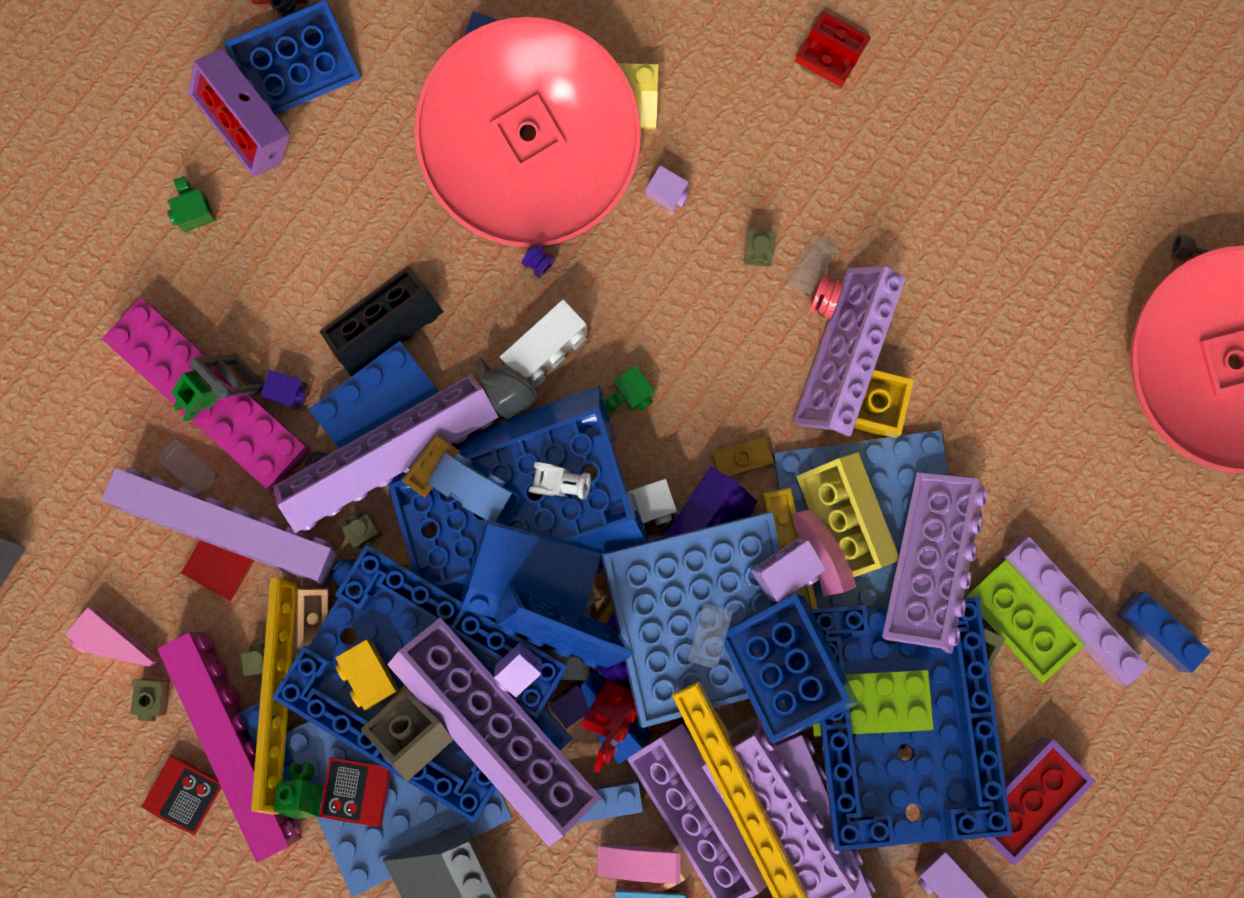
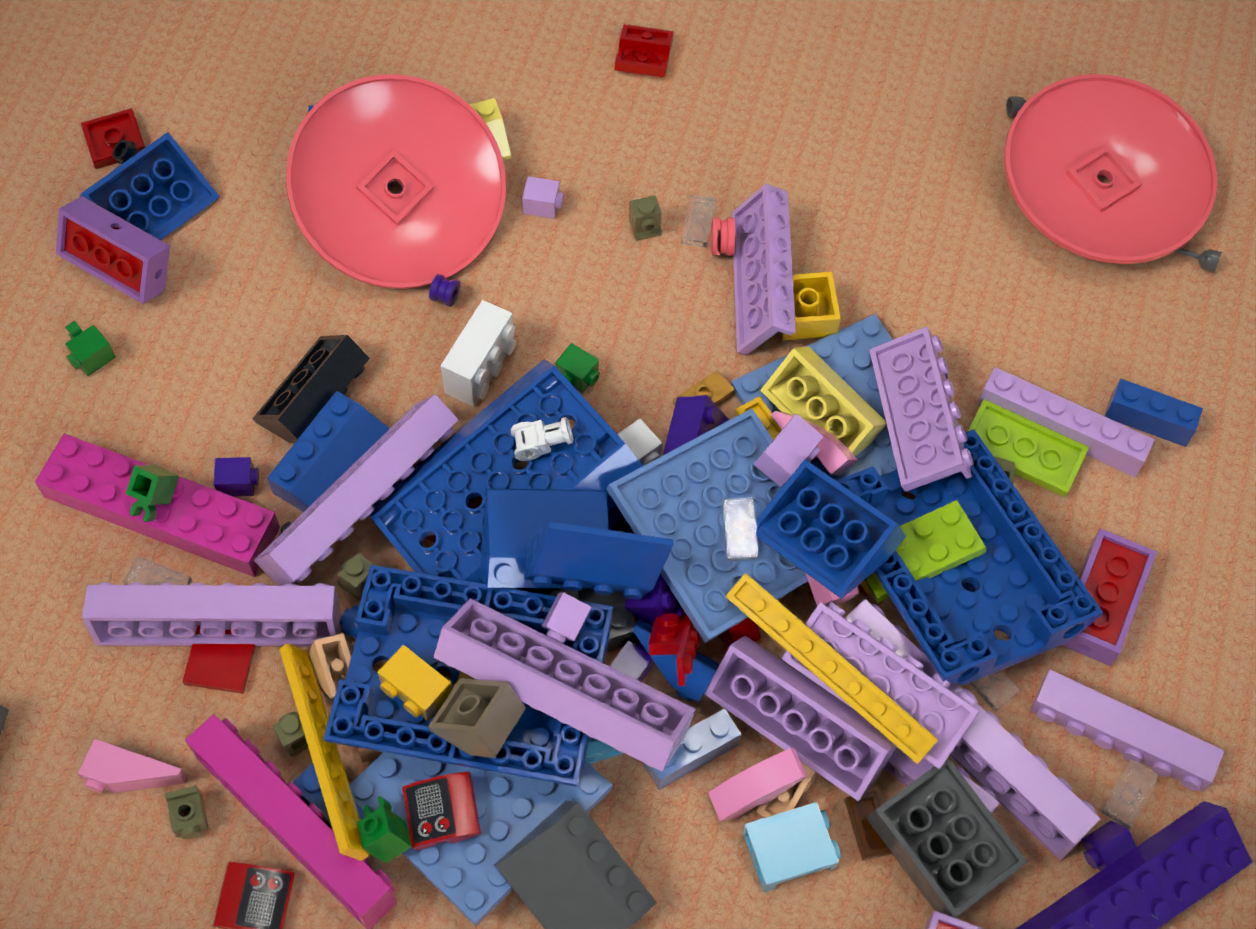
camera: 25 degrees left, 20 degrees down
(220, 363) = (177, 469): dark grey window -> none
(423, 468) = (409, 477): pearl gold plate -> none
(473, 489) = (455, 475): medium blue brick -> none
(506, 389) = (460, 391): dark grey hair -> none

